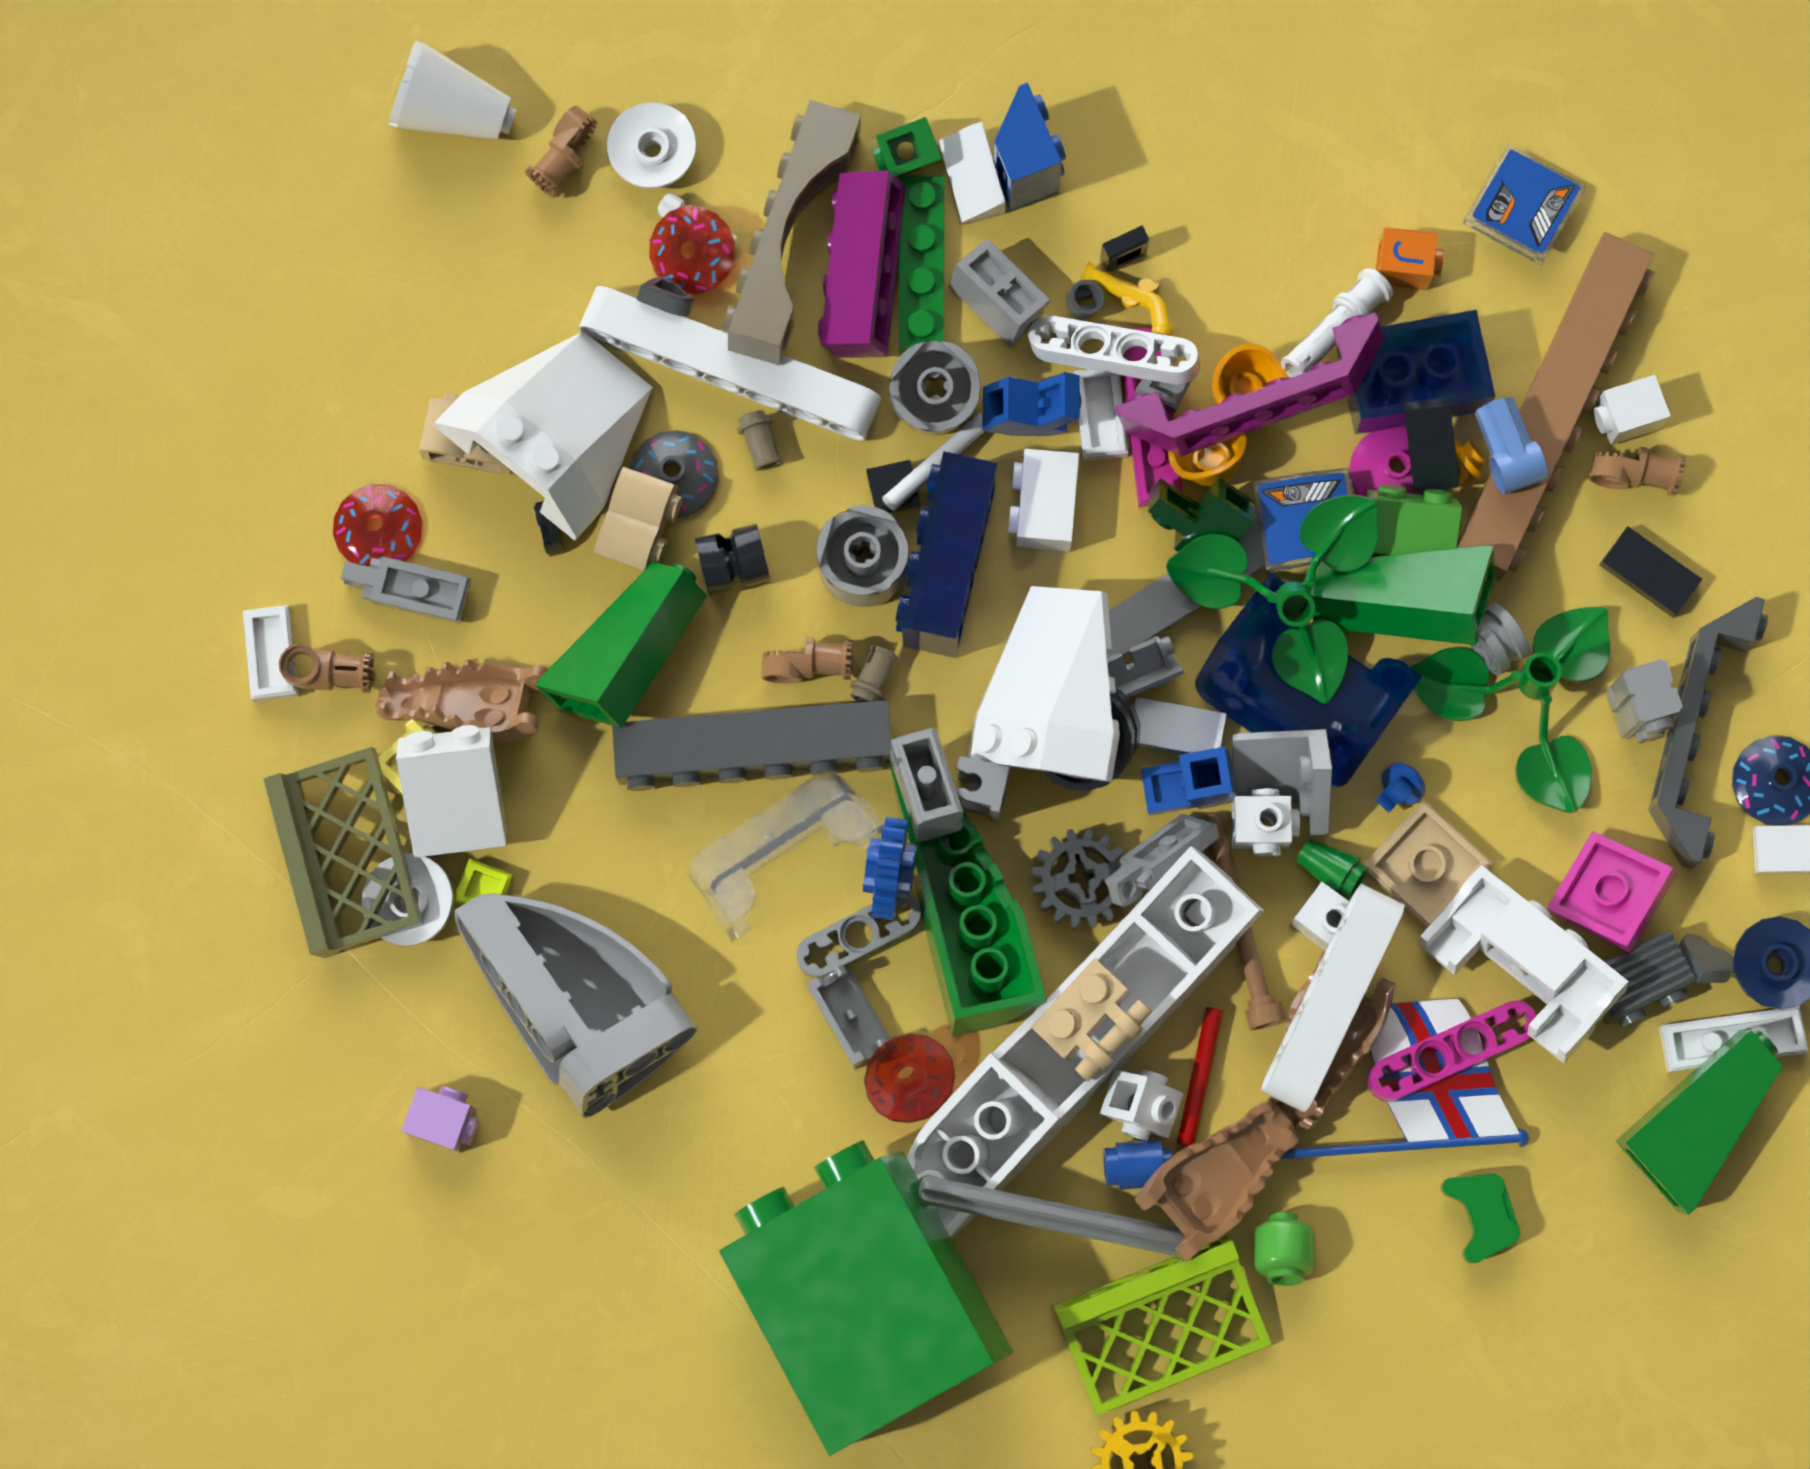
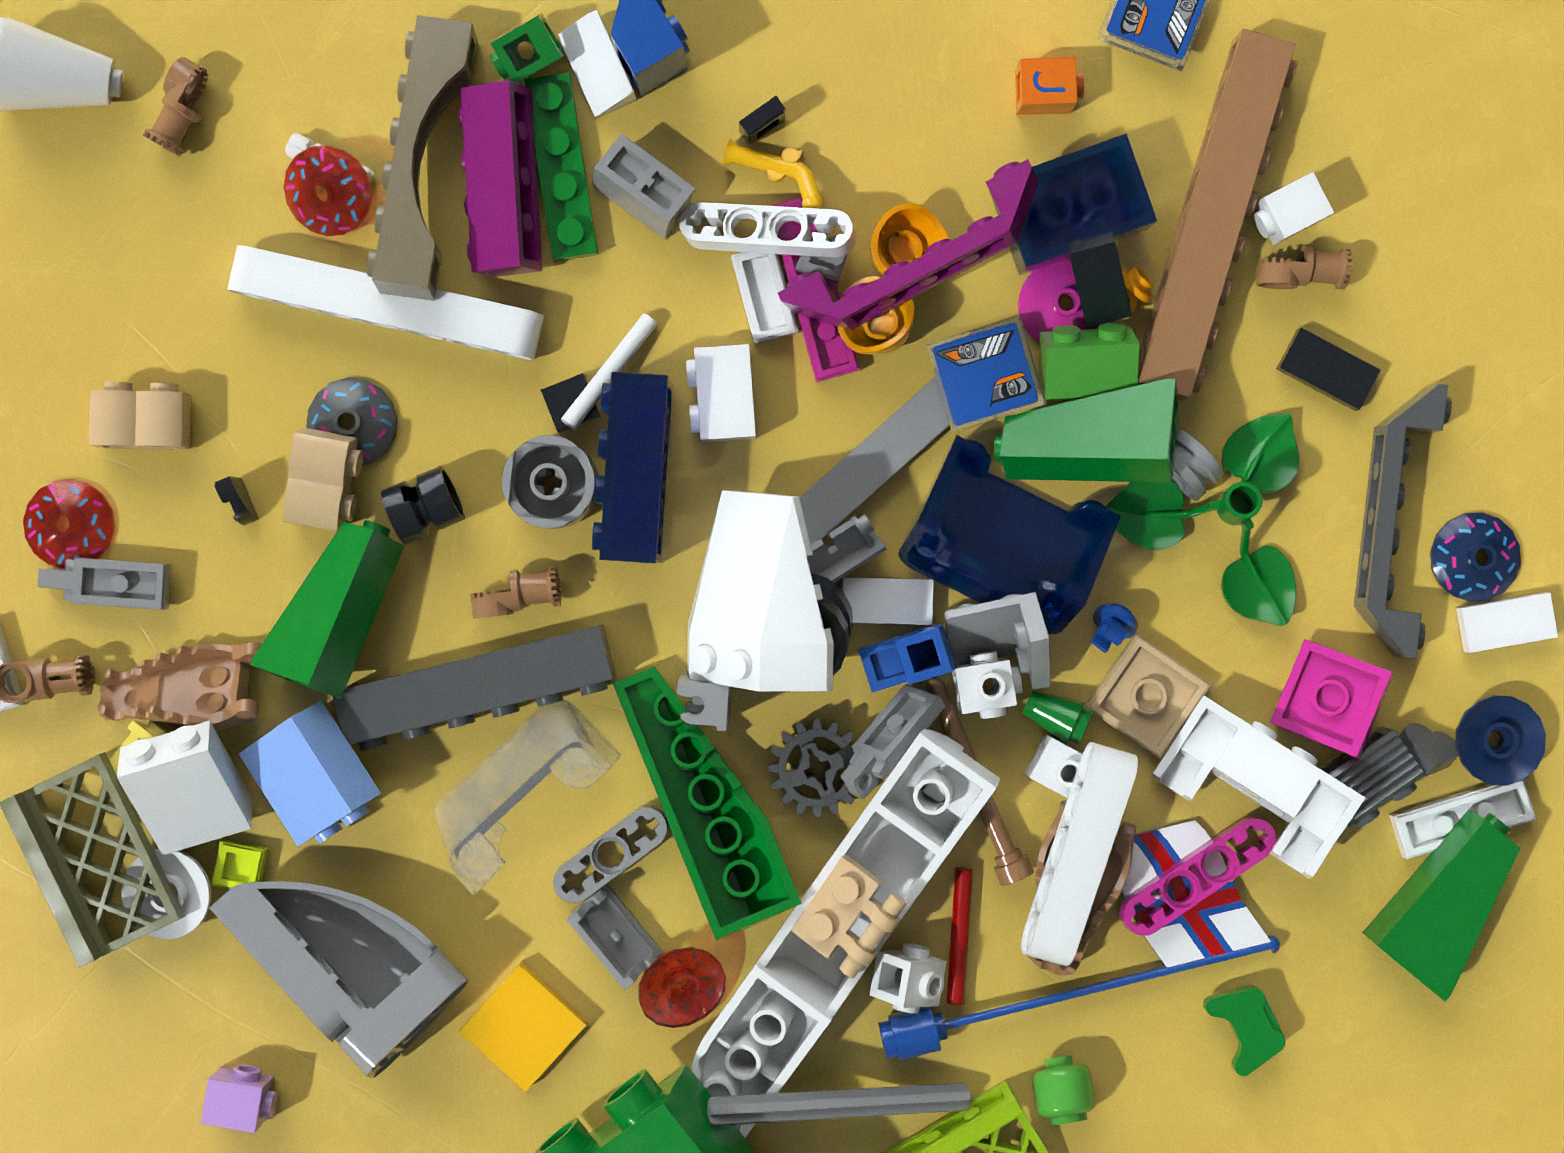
camera: 10 degrees left, 10 degrees up
(556, 425) = (220, 399): white wedge -> none
(576, 800) = (310, 775): none -> light blue brick
(648, 126) = (248, 75): white dish -> none
(666, 296) = (307, 245): dark grey tile -> none
(740, 1096) = (523, 1026): none -> yellow tile
(759, 440) = (430, 376): dark tan pin -> none
(873, 675) = (582, 597): dark tan pin -> none
(889, 868) = (628, 798): blue gear -> none
(926, 784) = (650, 709): light grey brick -> none
(933, 361) = (567, 304): light grey brick -> none
(1031, 407) = (694, 300): blue brick -> none
(1081, 291) = (727, 170): dark grey hinge -> none
(1215, 1180) = (991, 1042): medium nougat animal -> none
(1218, 511) = (886, 397): dark green brick -> none
(1315, 655) = (1005, 505): green plant -> none
(1359, 300) = (995, 151): white pin -> none
(1513, 458) = (1184, 282): medium blue piece -> none
(1644, 701) = (1343, 508): light grey brick -> none

